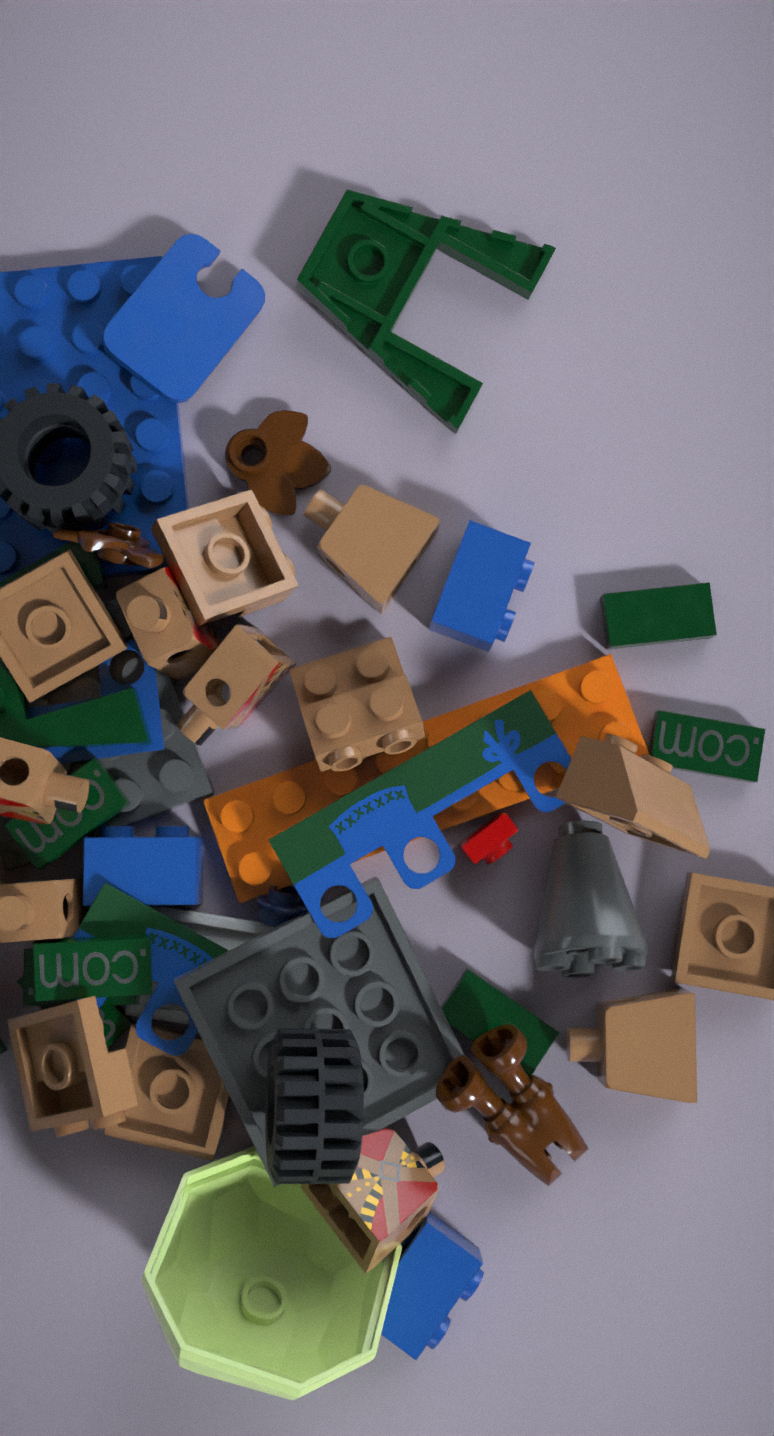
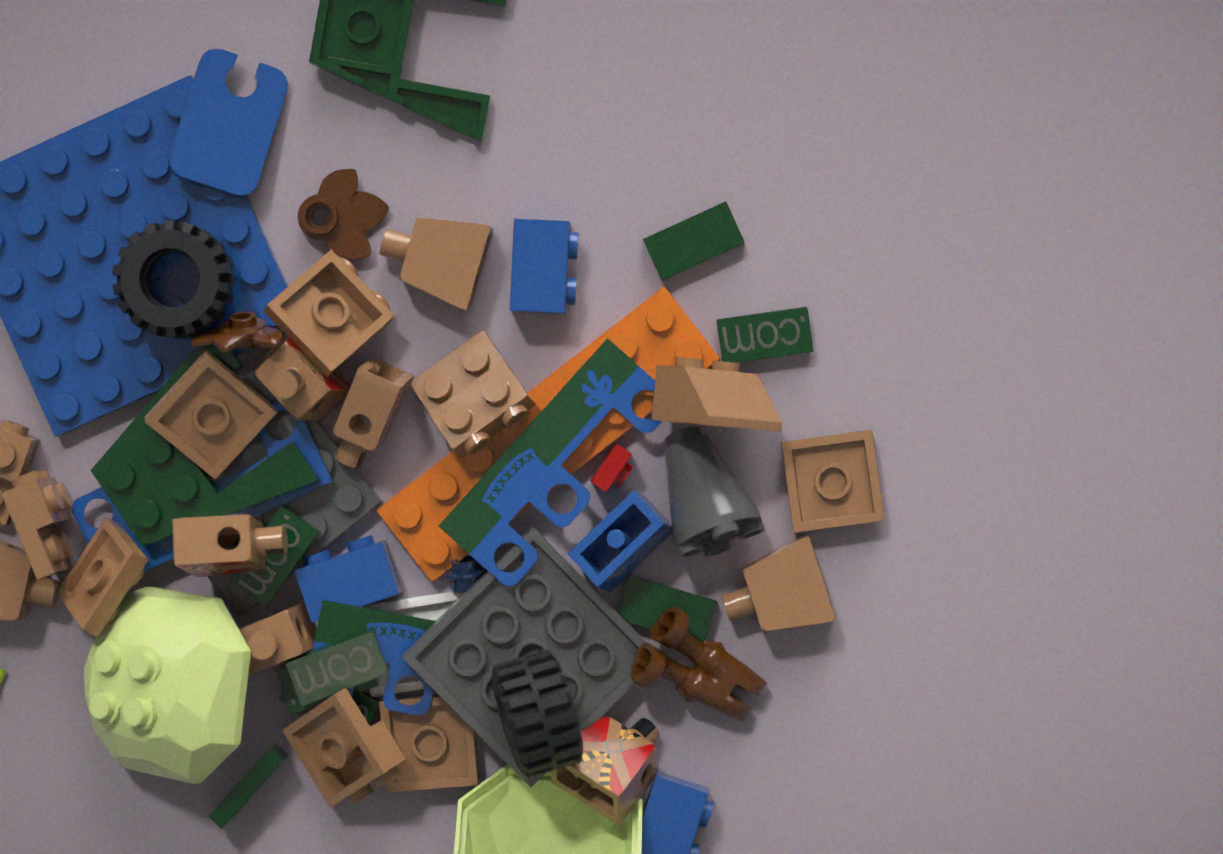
camera: 10 degrees left, 5 degrees up
(473, 927) = (621, 541): none -> blue brick

